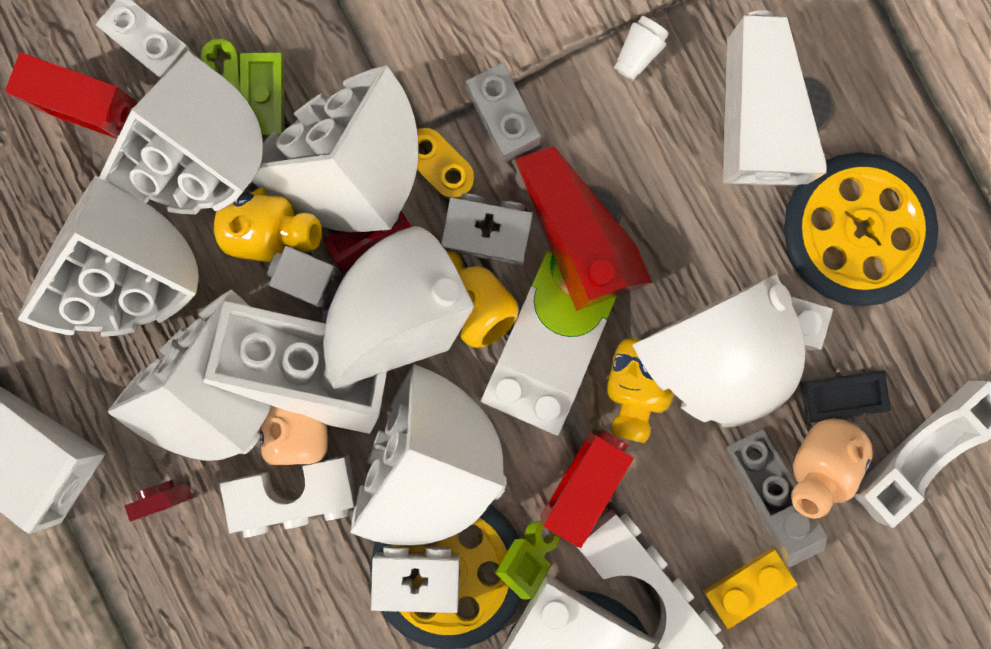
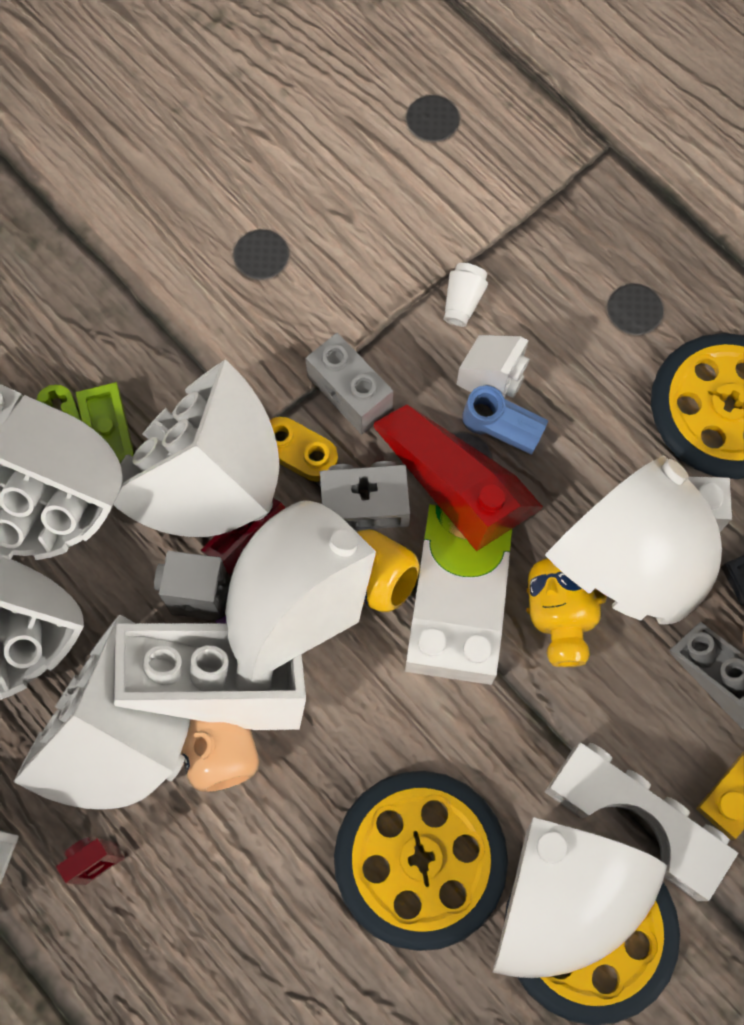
camera: 15 degrees left, 15 degrees down
(254, 504) = (194, 844): white arch -> none
(262, 225) = (132, 546): yellow piece -> none
(396, 593) = (418, 879): white brick -> none
(430, 466) = (373, 747): white brick -> none
(525, 563) = (500, 823): lime plate -> none
(586, 487) = (542, 720): red window -> none
(644, 193) = (508, 420): none -> medium blue piece
(645, 135) = (495, 363): none -> white slope
(767, 108) = (604, 314): white slope -> none

